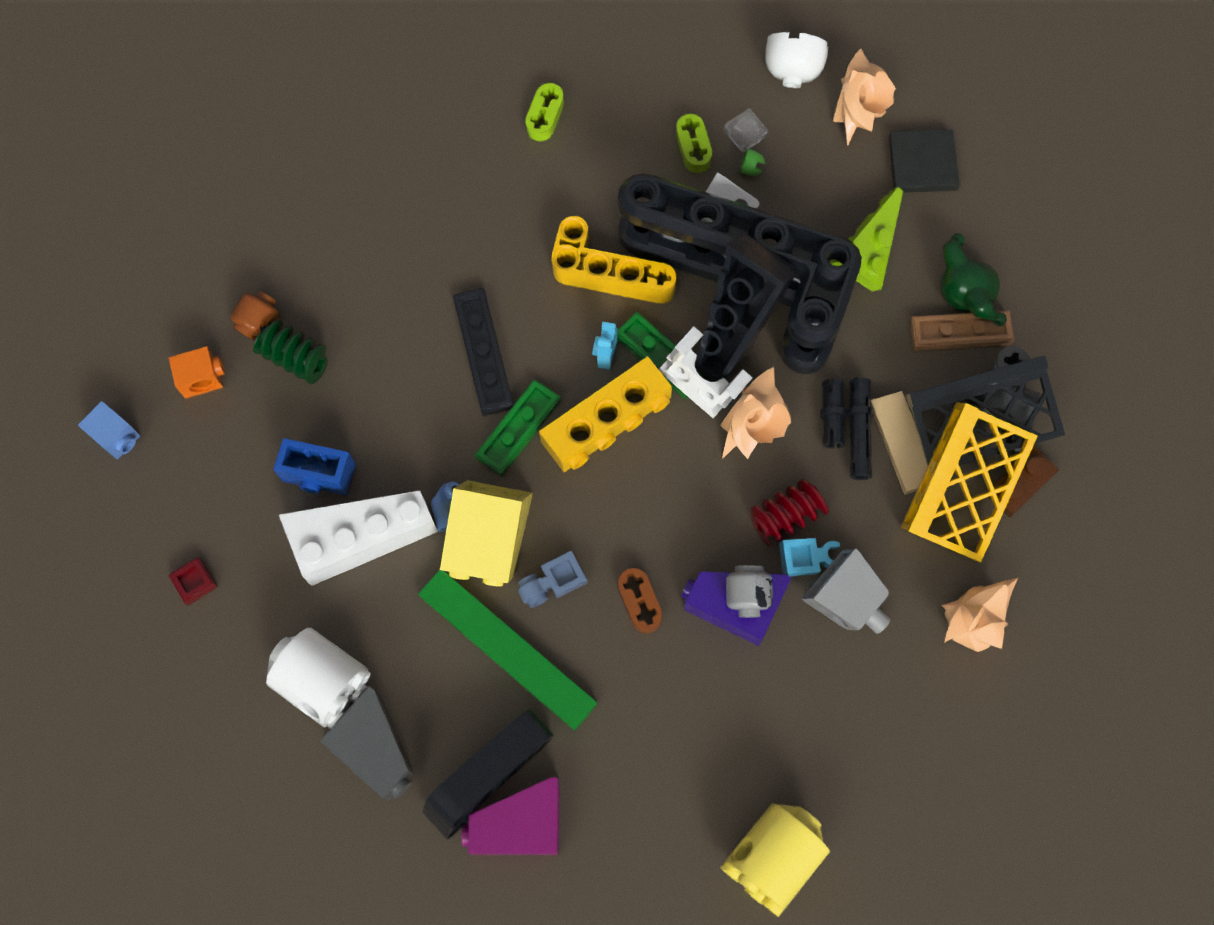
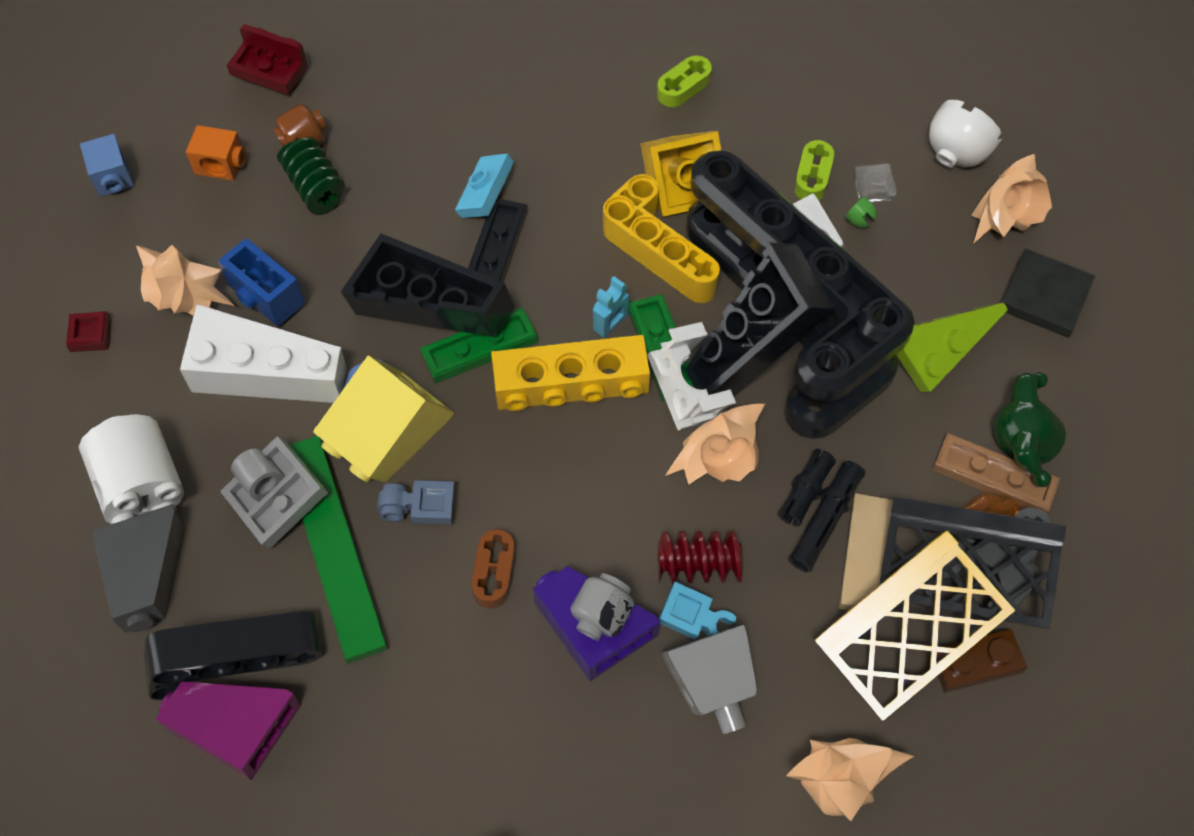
camera: 25 degrees right, 10 degrees down
(184, 265) = (268, 60): none -> dark red bracket
(245, 505) = (177, 283): none -> light nougat hair
(437, 632) = (272, 490): none -> light grey plate
(440, 288) = (484, 186): none -> medium azure plate
(450, 406) = (426, 290): none -> black wedge
(591, 193) = (671, 164): none -> yellow slope
(972, 358) = (994, 503): none -> clear orange arm

